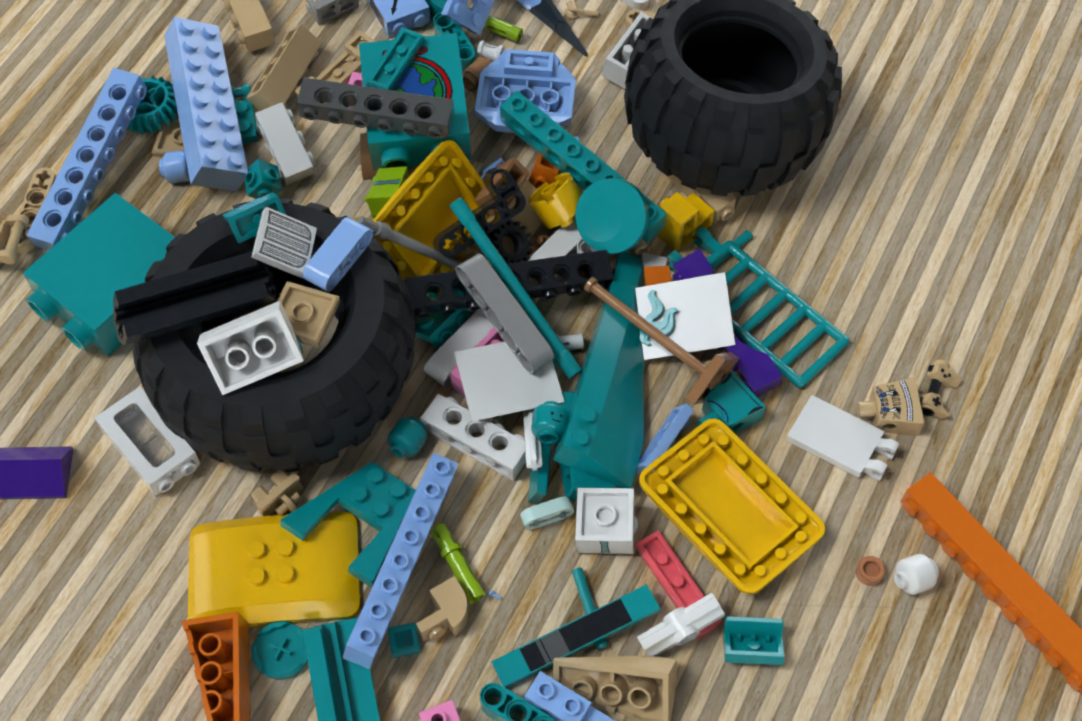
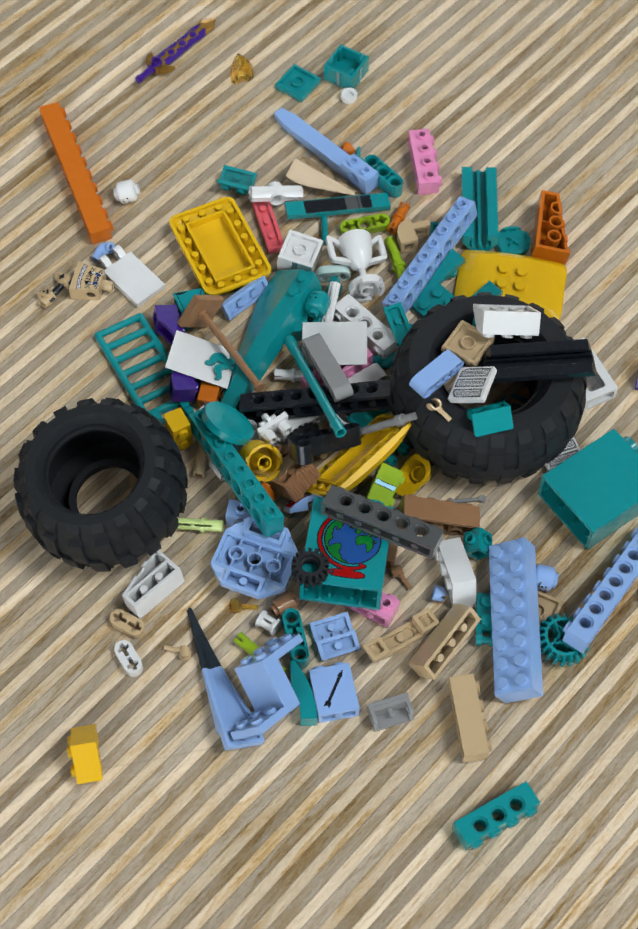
camera: 165 degrees left, 0 degrees up
(303, 125) = (438, 593): none -> light blue hinge
(331, 212) = (438, 408): none -> tan hand
(338, 189) = (447, 515): none -> medium nougat wedge
(353, 138) = (396, 571): none -> medium nougat hand
(396, 60) = (356, 563): teal tile -> none
(423, 425) = (397, 321): none -> teal hinge
(446, 391) = (384, 363): none -> teal arm
(447, 49) = (310, 557): none -> black tyre
(473, 643) = (398, 217): none -> orange pin
(517, 539) = (356, 253): none -> white piece
(520, 629) = (379, 227): none -> lime beam
(558, 244) = (272, 425): none -> white hips
(605, 135) = (217, 525): none -> yellowish green pin
(870, 570) = (150, 204): nougat tile -> none
(904, 470) = (104, 248): none -> light blue arm

